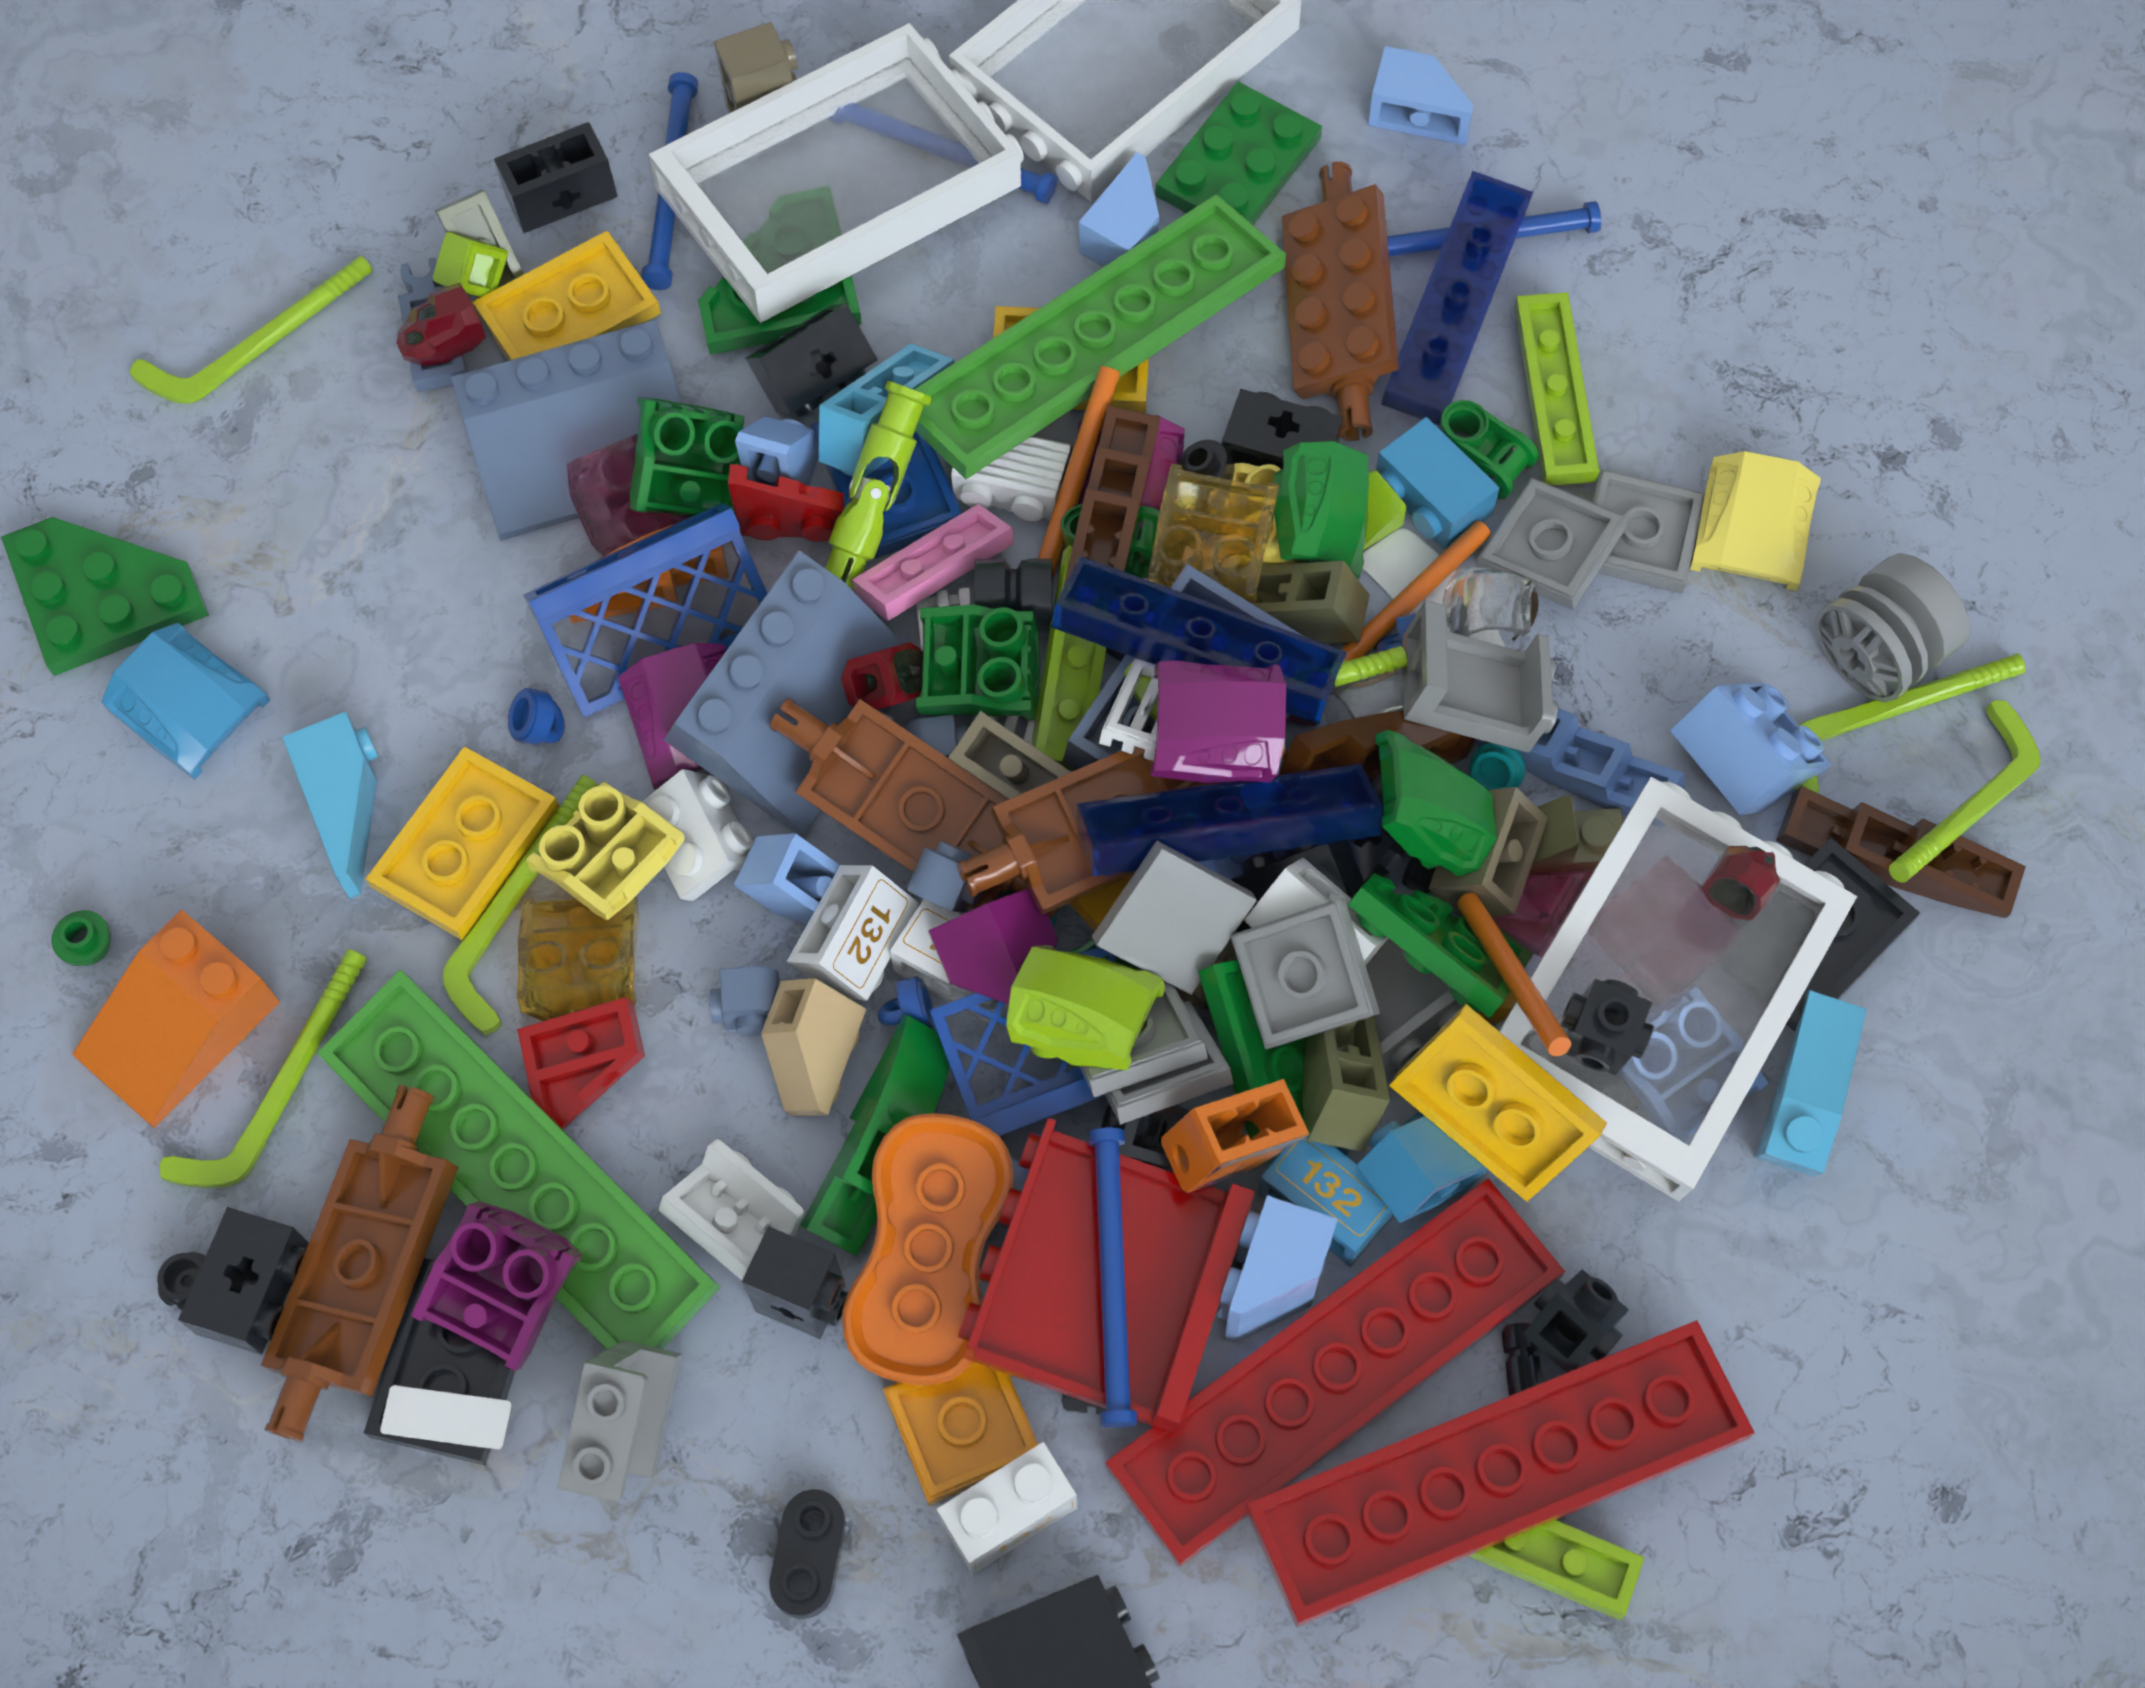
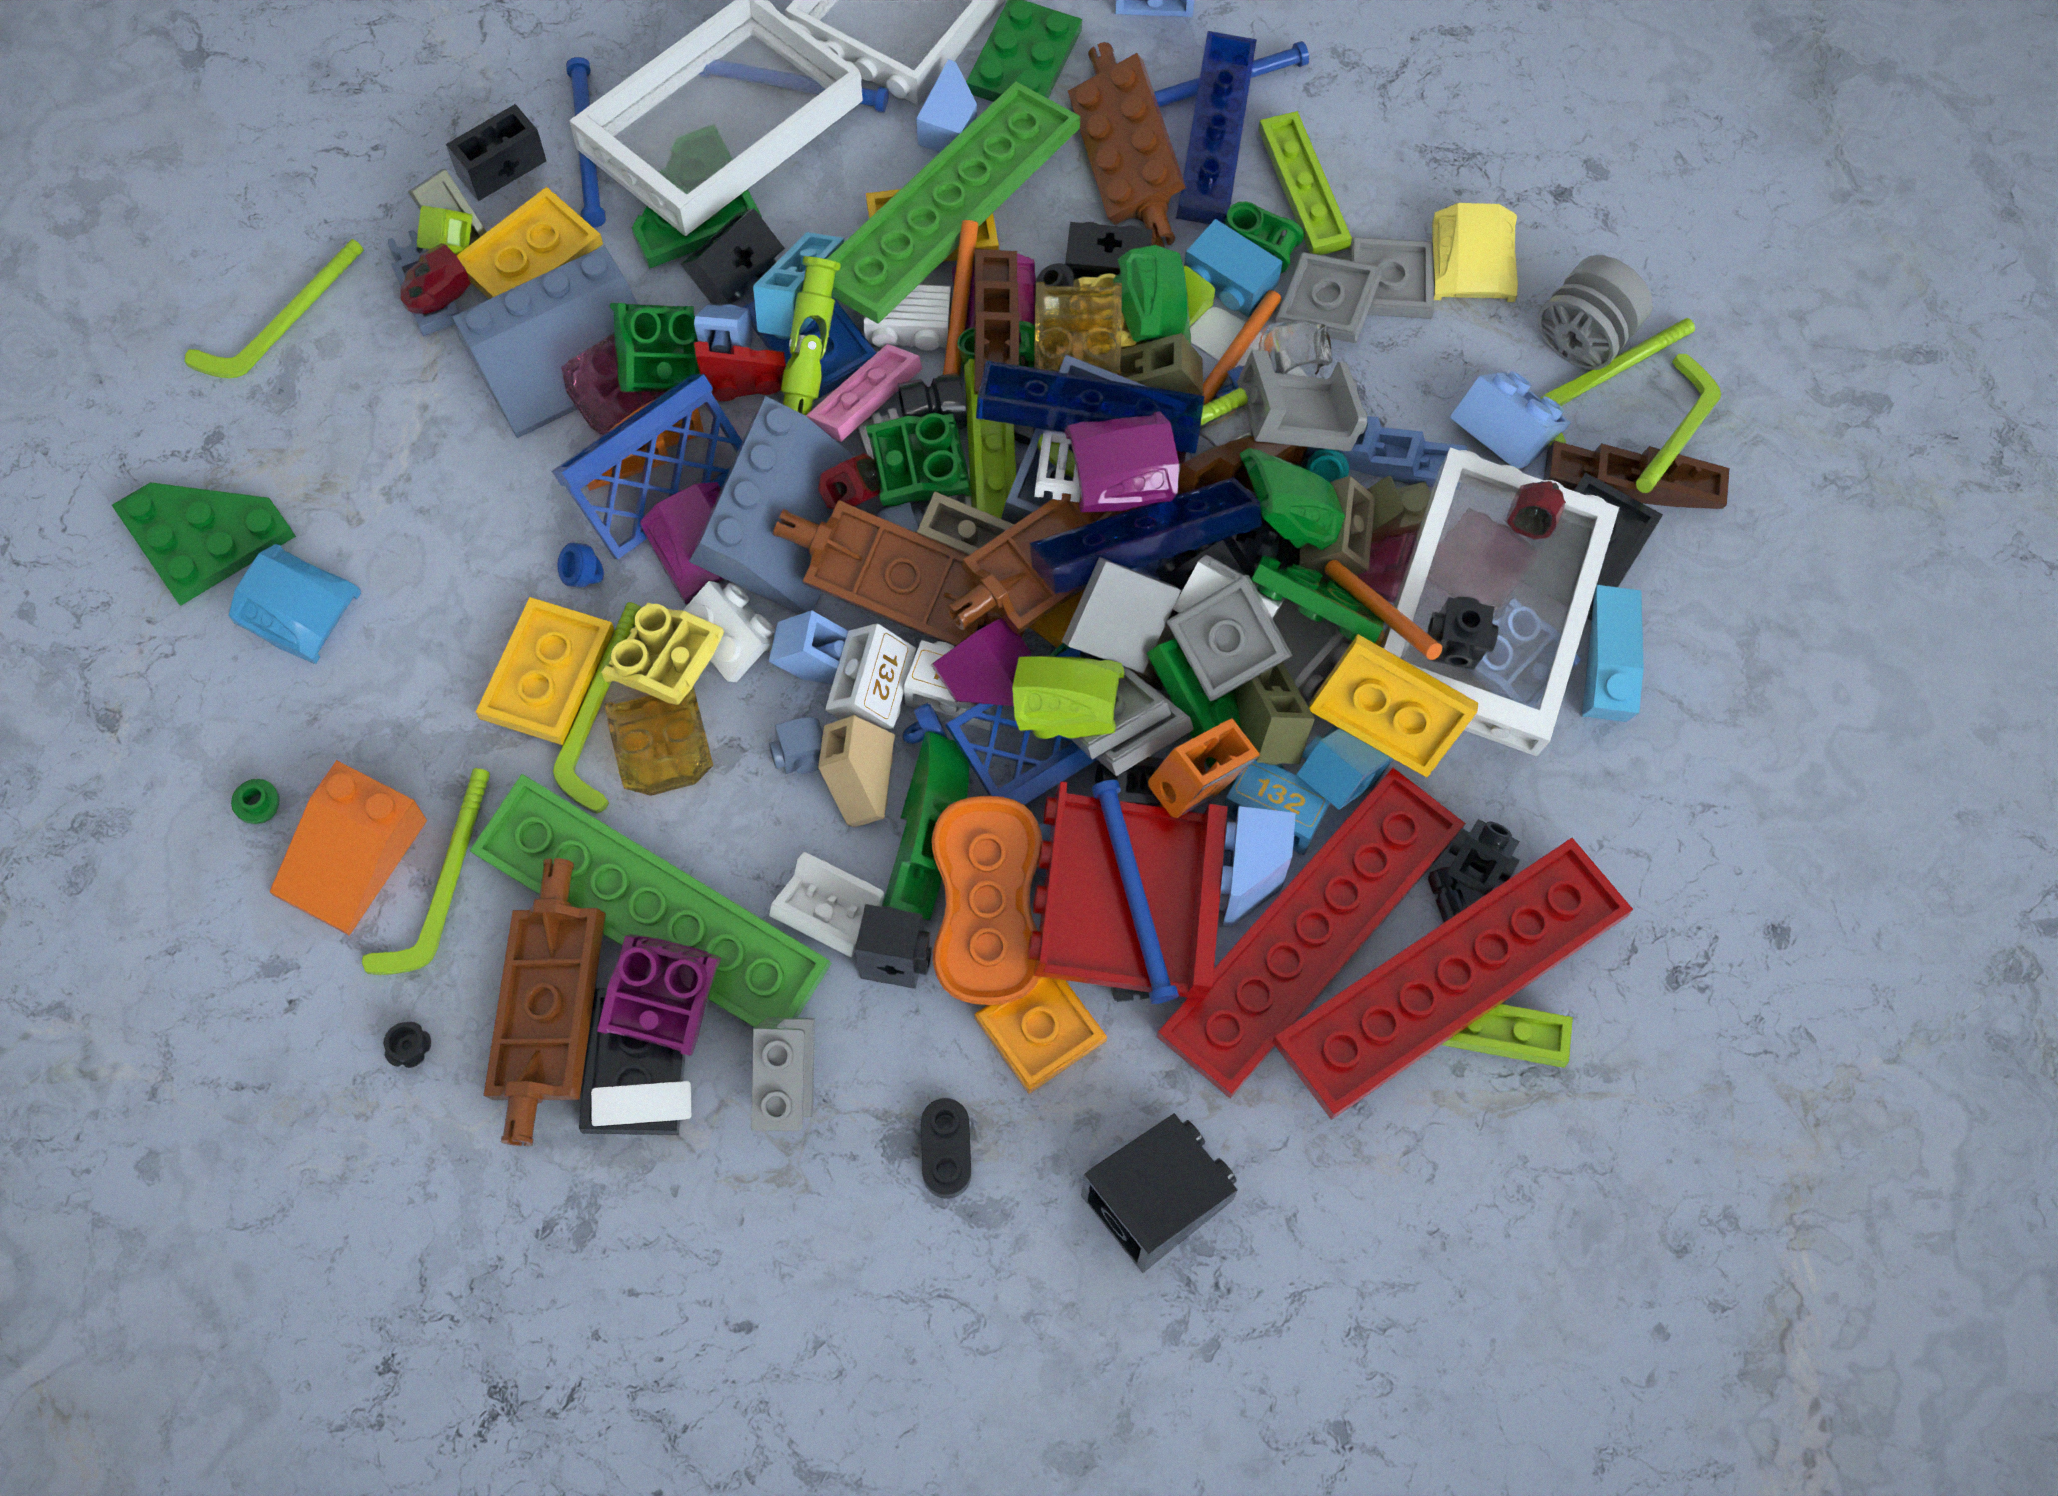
camera: 15 degrees left, 0 degrees up
(242, 1251) = (445, 1012): black brick -> none
(339, 789) = (437, 647): medium azure slope -> none
(580, 1056) = (679, 812): red wing -> none
(754, 64) = (635, 40): dark tan brick -> none
(939, 880) = (932, 623): sand blue plate -> none
(1007, 1508) = (1092, 1080): white brick -> none

